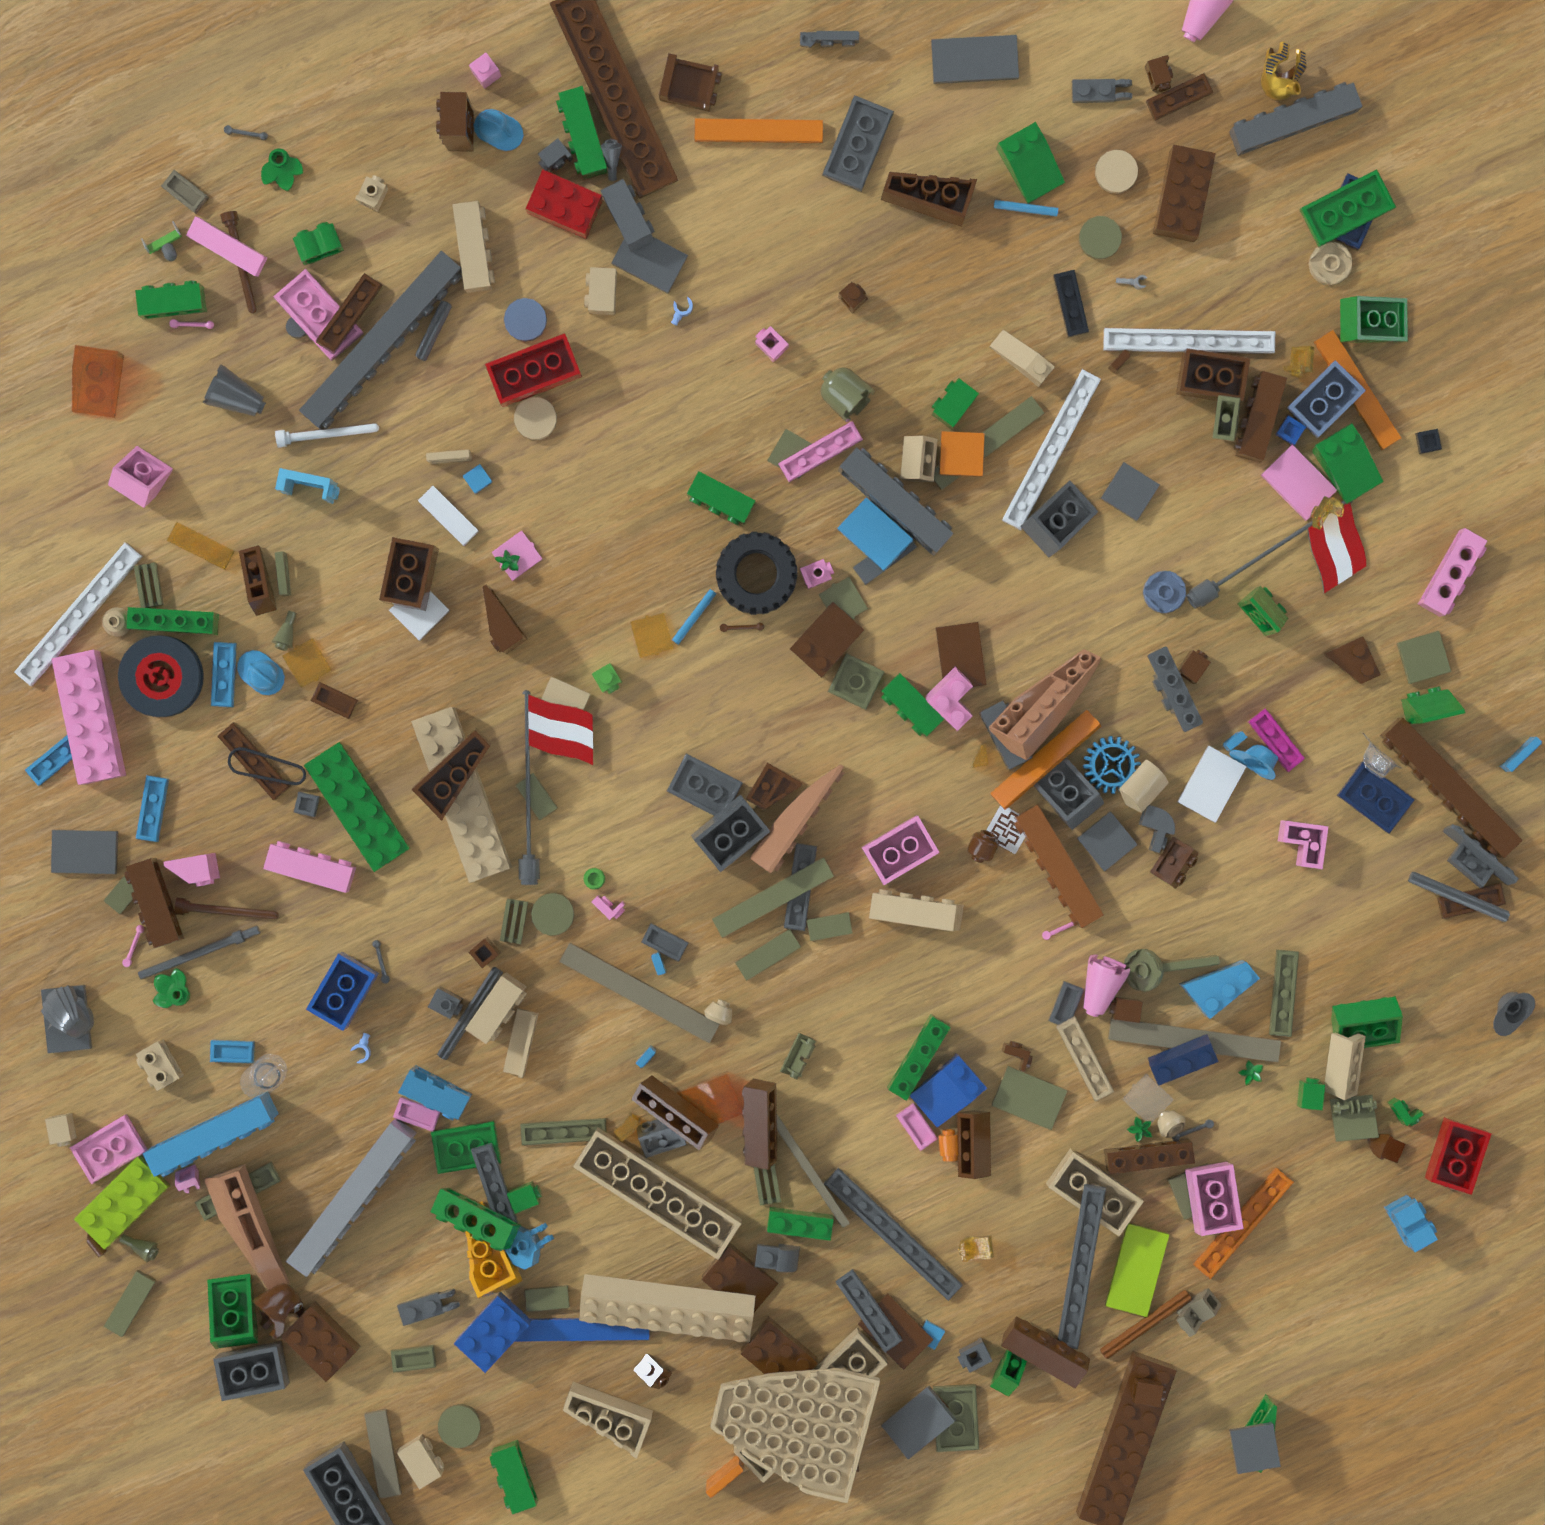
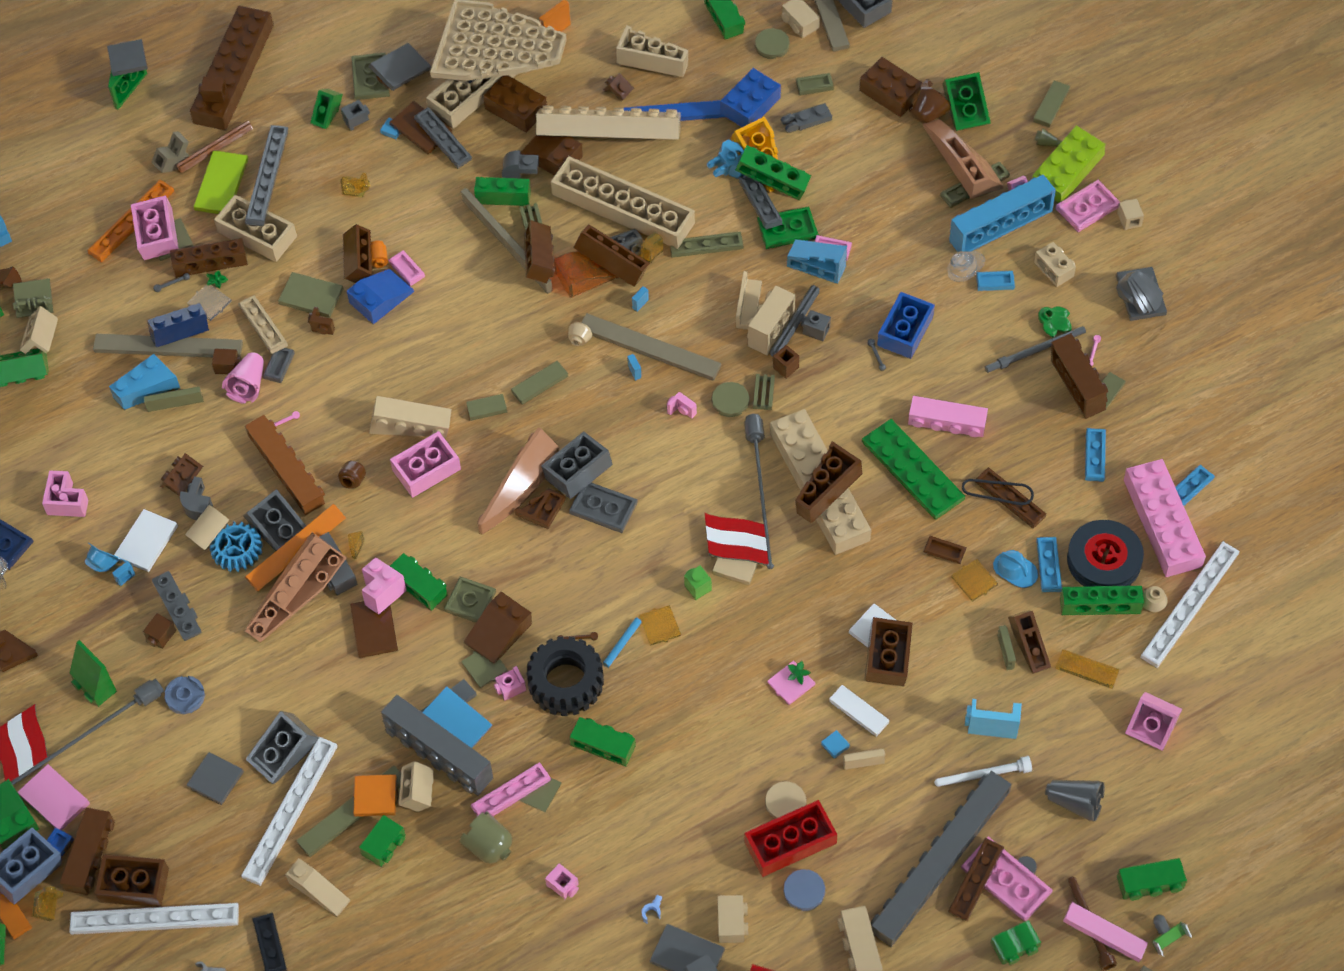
camera: 175 degrees right, 30 degrees down
(84, 851) = (1149, 417): dark grey tile -> none
(96, 381) = (1211, 803): clear orange slope -> none
(145, 567) = (1132, 617): olive tile -> none
(174, 324) = (1111, 863): bright pink hinge -> none
(183, 906) = (1053, 381): reddish brown piece -> none
(195, 869) = (1049, 404): bright pink slope -> none
(251, 1371) = (943, 61): dark grey brick -> none
(284, 637) = (997, 596): olive cone -> none
(306, 804) = (958, 467): dark grey tile -> none
(349, 1200) = (877, 180): light grey brick -> none
(363, 1044) = (882, 291): light blue piece -> none
(433, 330) = (892, 873): dark grey axle -> none
(502, 626) = (795, 614): reddish brown slope -> none
(524, 1197) = (734, 194): green brick -> none
(539, 799) = (749, 484): olive tile -> none
(547, 1298) = (709, 130): olive tile -> none
(594, 878) = (696, 429): bright green tile -> none
(664, 942) = (630, 385): dark grey tile -> none
(773, 897) = (543, 419): olive tile -> none
(798, 907) = (513, 433): dark grey tile -> none
(801, 1048) = (505, 314): olive hinge -> none
(853, 296) = (484, 931): reddish brown brick -> none
(893, 1234) = (425, 193): dark grey tile -> none
(918, 1057) = (405, 314): green brick -> none
(1005, 831) = (334, 492): white sticker -> none
(1045, 1352) = (297, 119): reddish brown brick -> none
(1107, 841) = (241, 489): dark grey tile -> none
(1123, 357) = (222, 891): reddish brown tile -> none
(1145, 970) = (209, 389): olive tile -> none
(1170, 1123) = (190, 282): tan cone -> none
(1226, 418) = (120, 837): olive slope -> none
(1251, 1073) = (119, 324): green plant -> none
(1276, 740) = (86, 580): dark pink tile -> none
(1283, 993) = (88, 386): olive tile -> none
(1311, 1094) = (69, 311): green brick -> none
(1321, 512) = (34, 767): clear yellow bracket -> none

